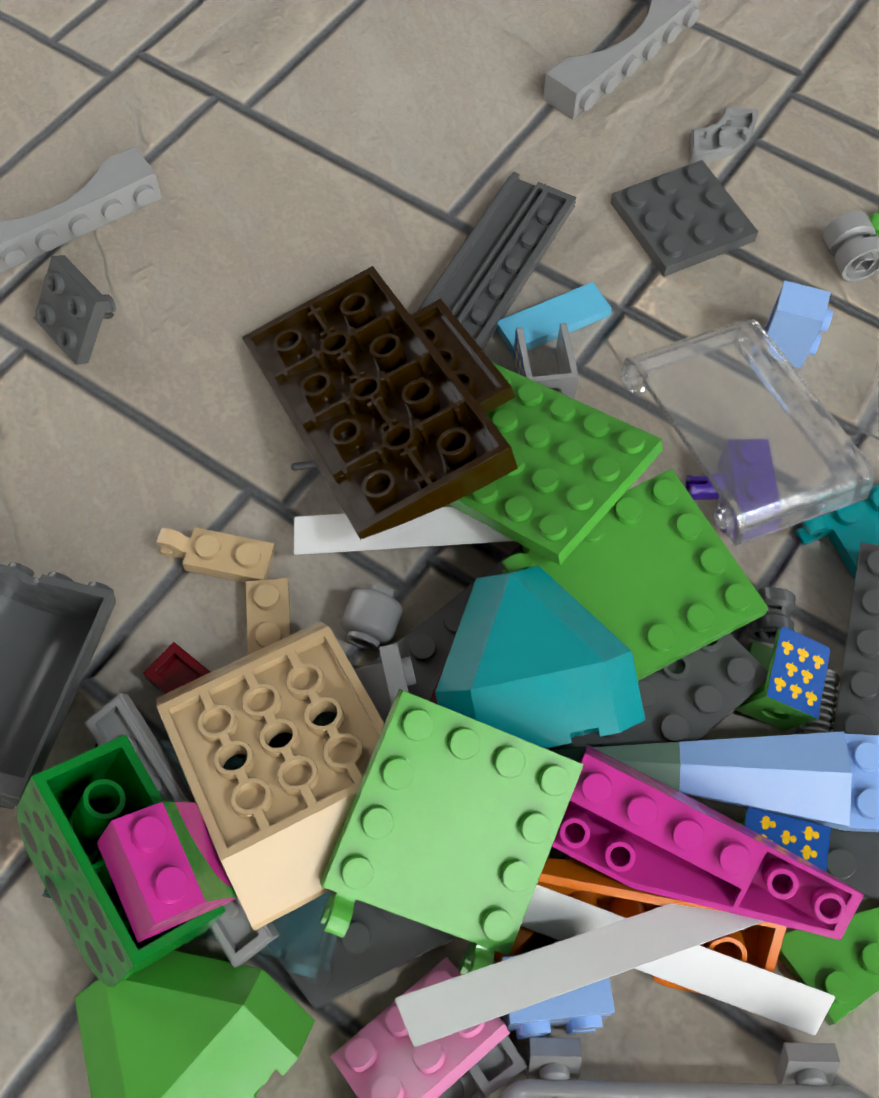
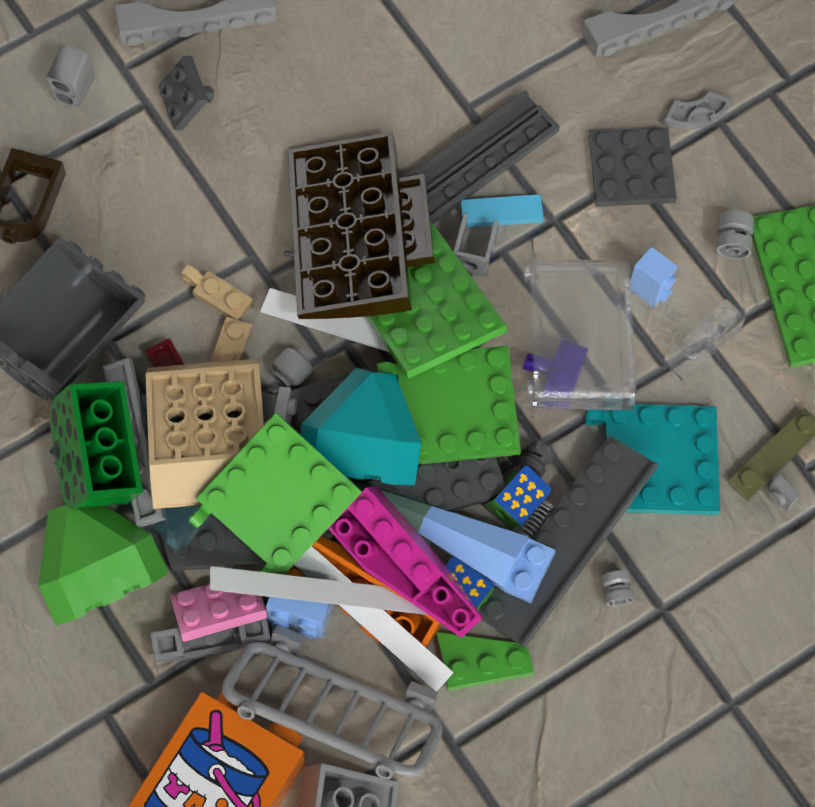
camera: 20 degrees right, 5 degrees up
(164, 866) = (120, 455): dark pink slope -> none

